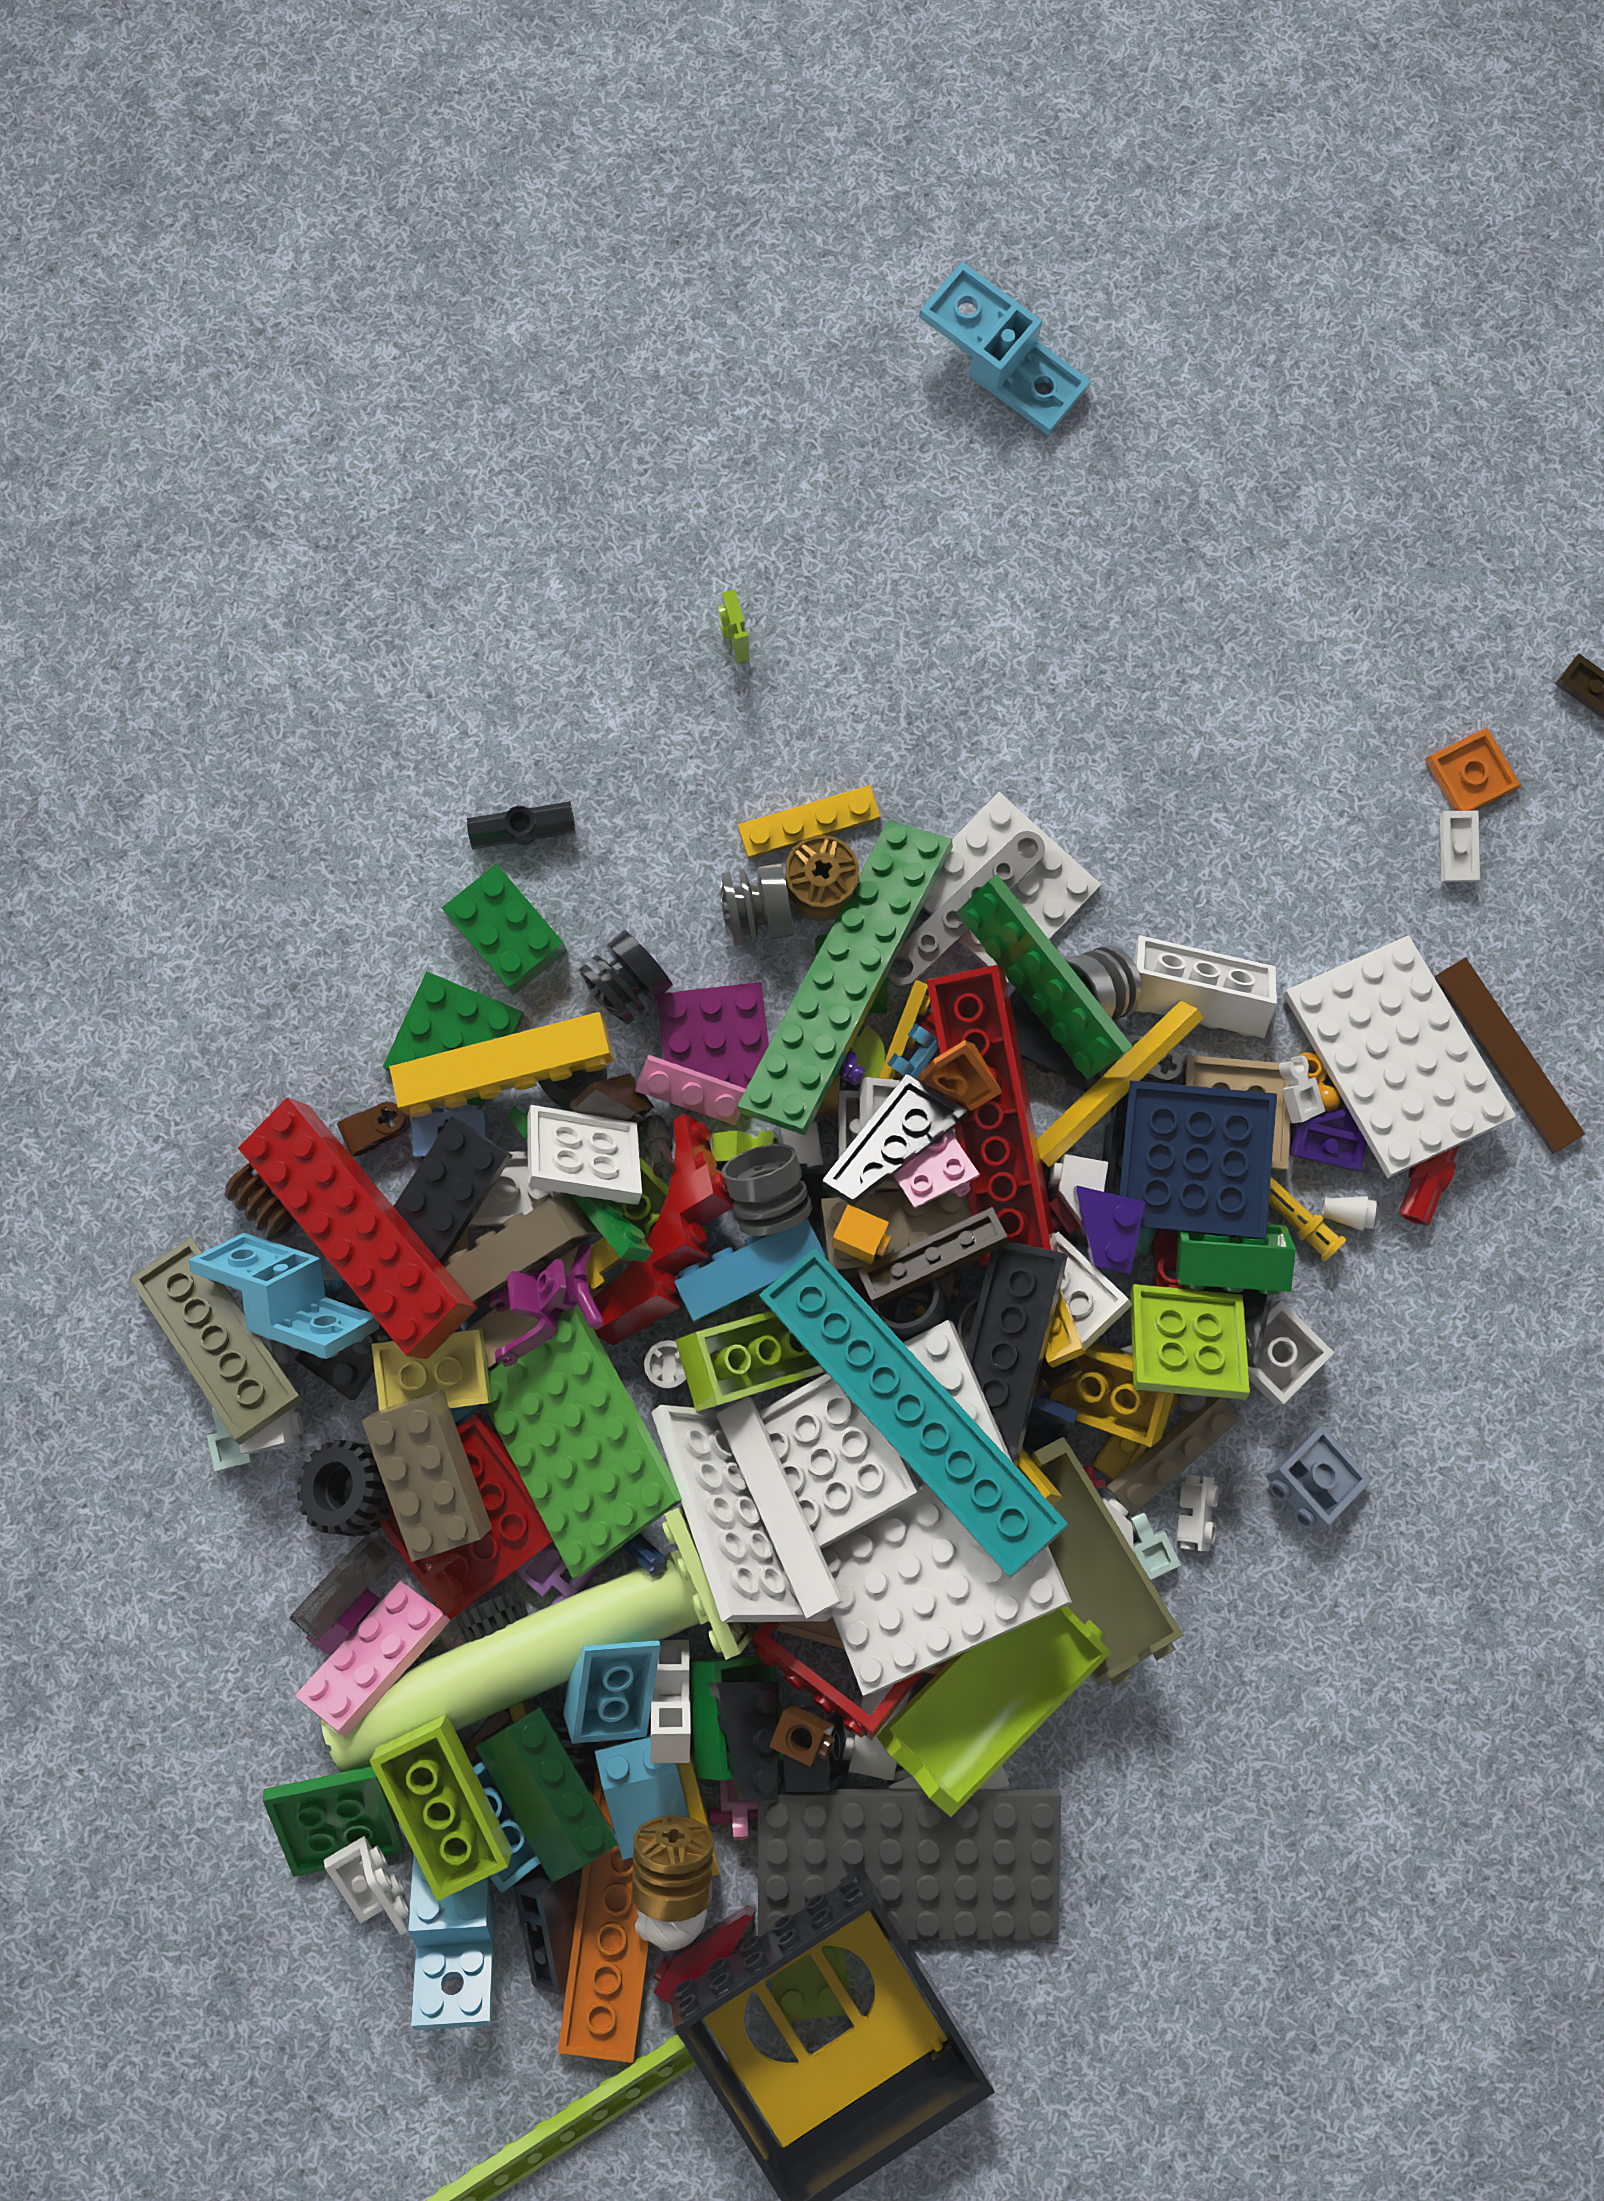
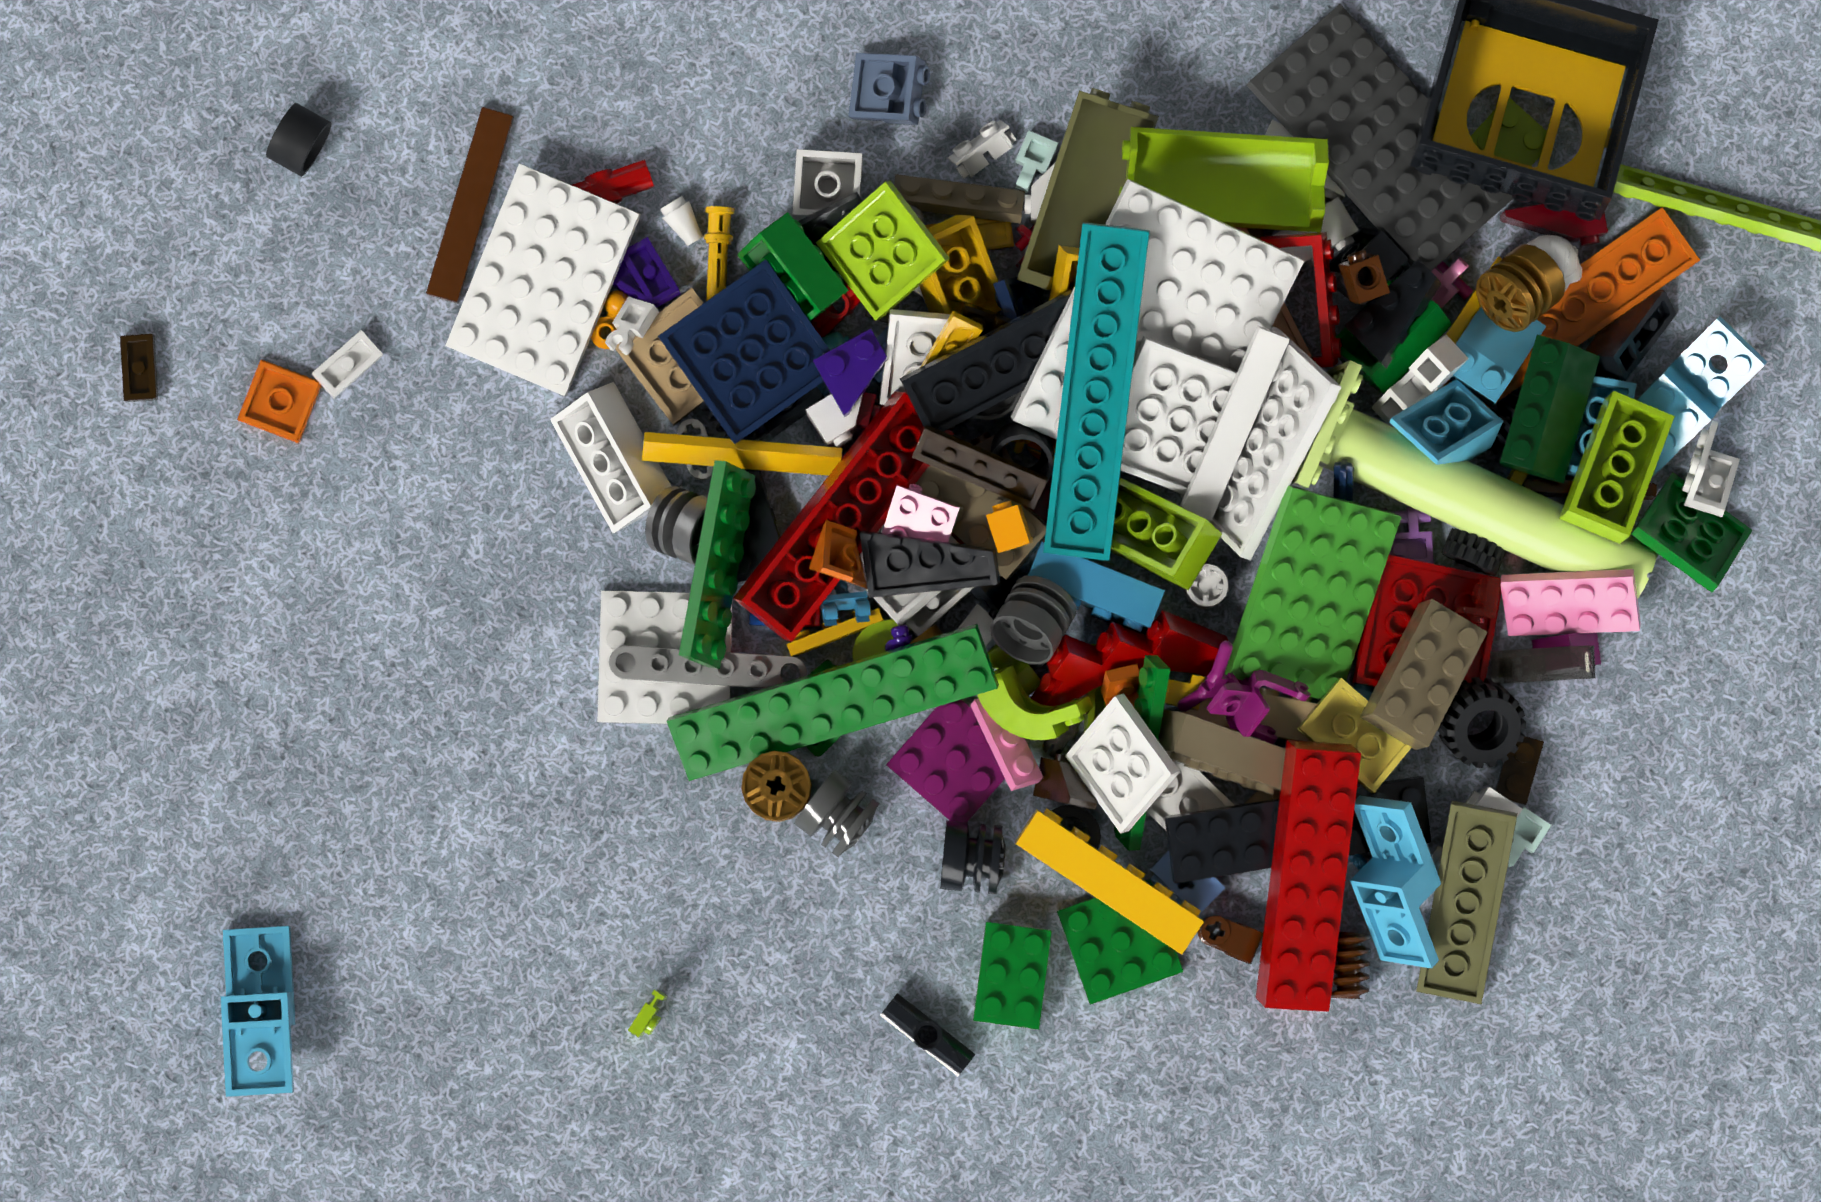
camera: 130 degrees left, 5 degrees up
(279, 1479) = (1519, 771): none -> dark brown plate
(648, 1214) = (1121, 681): none -> orange bracket
(698, 1116) = (1025, 717): none -> lime arch
(808, 820) = (739, 836): yellow plate -> none

